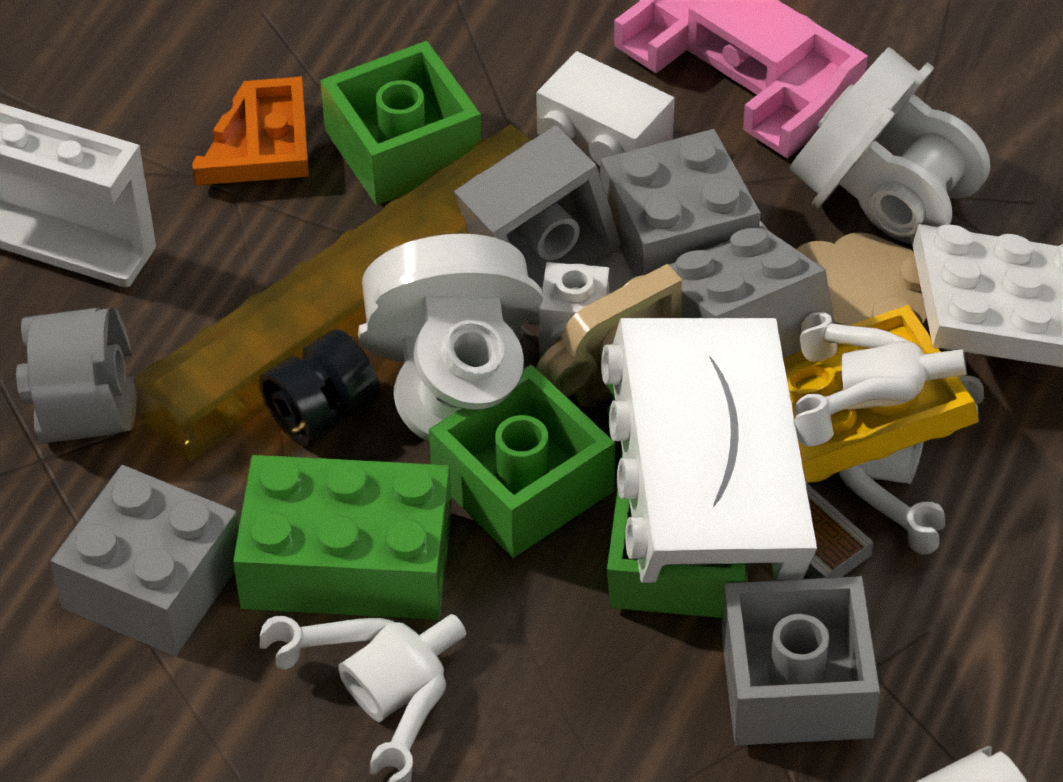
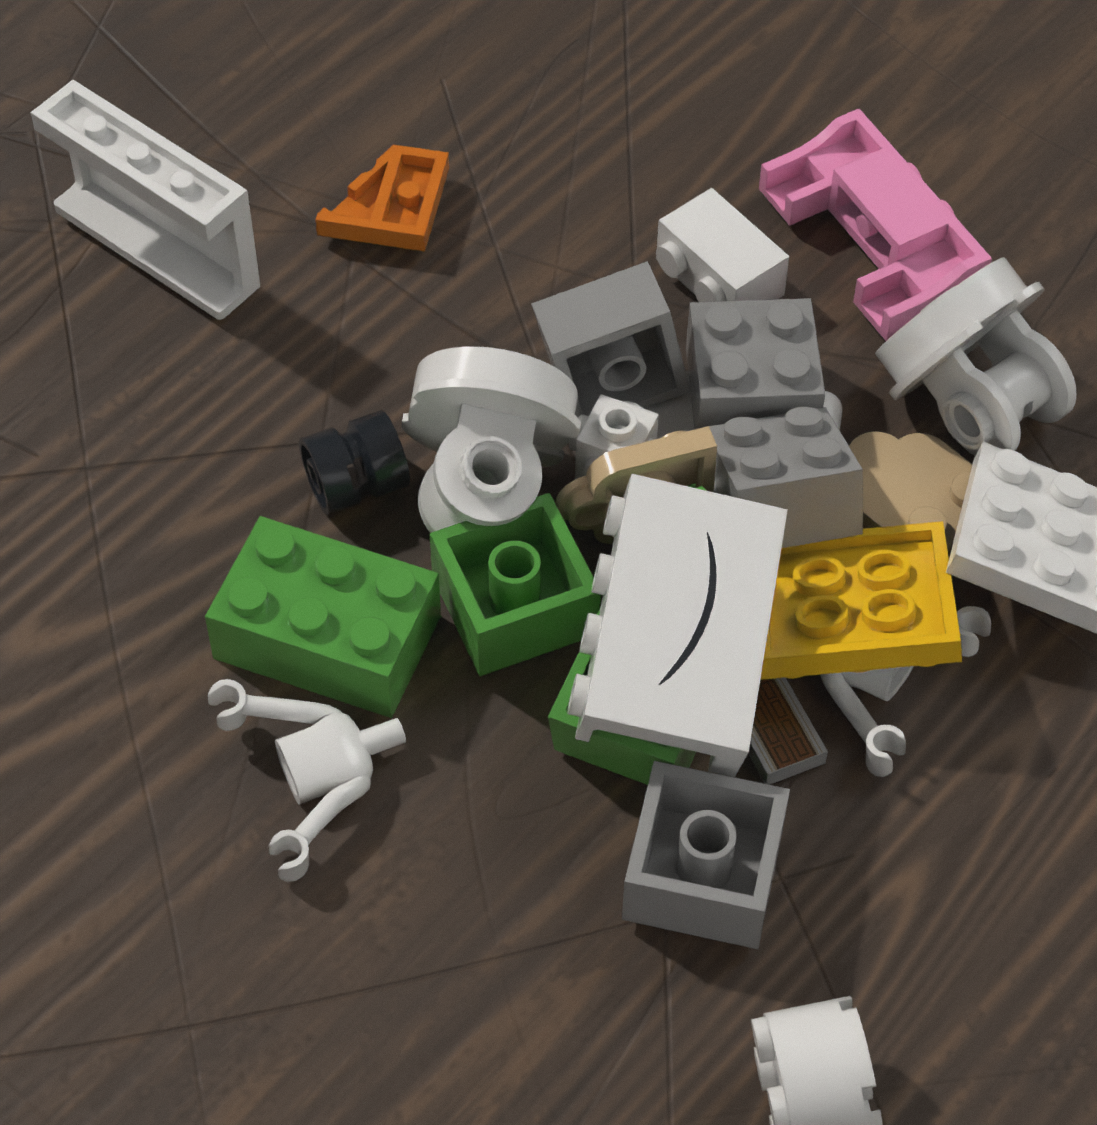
camera: 15 degrees right, 5 degrees up
(77, 374) = (134, 396): light grey brick -> none
(147, 560) = (135, 590): light grey brick -> none
(214, 378) = (257, 431): clear yellow brick -> none
(399, 120) = (523, 220): bright green brick -> none
(873, 377) = (865, 589): white piece -> none

